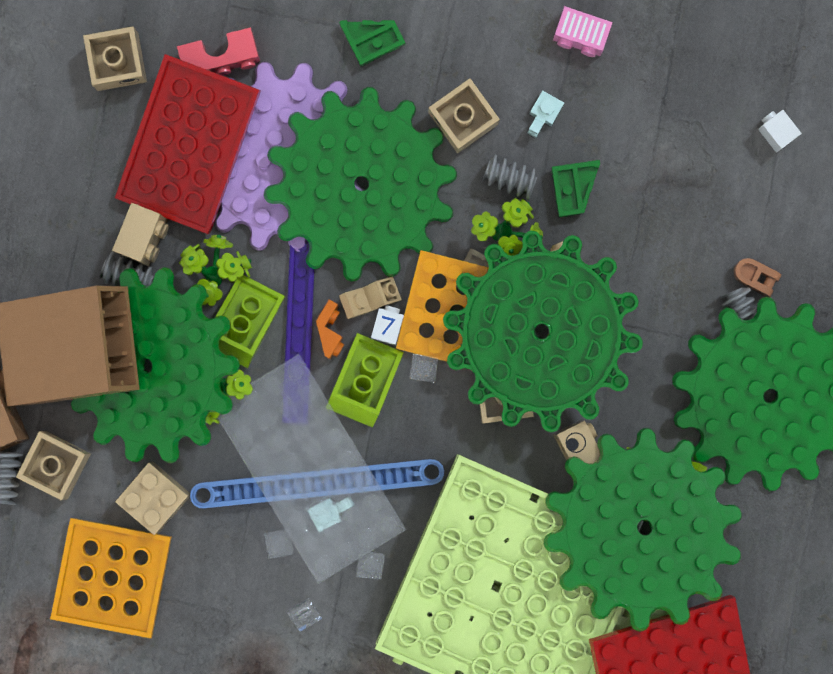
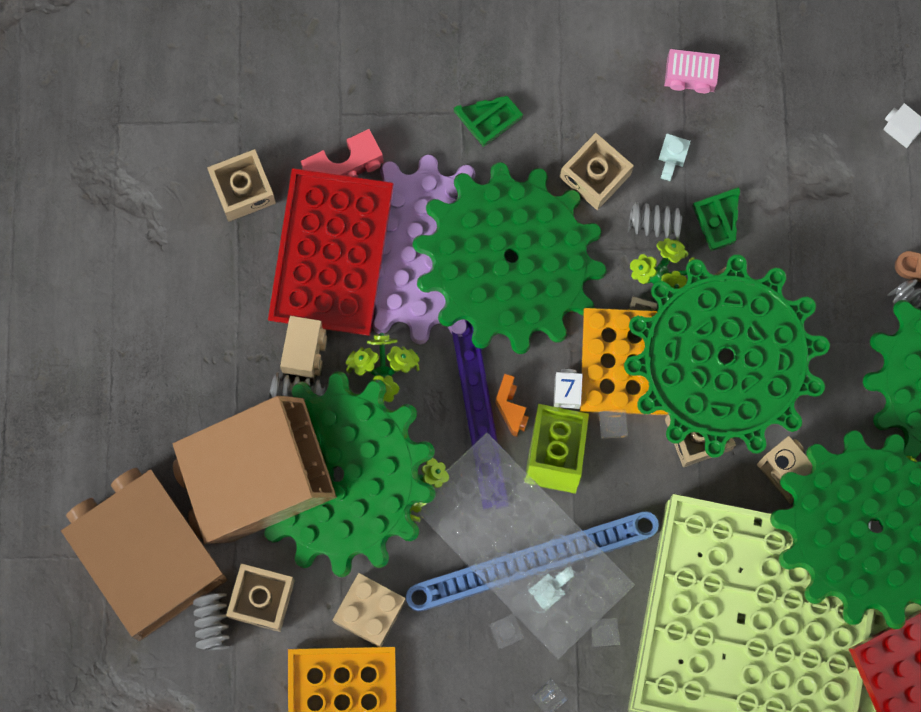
camera: 15 degrees left, 10 degrees down
(250, 313) = (433, 404): lime slope -> none
(370, 298) = (544, 366): tan slope -> none

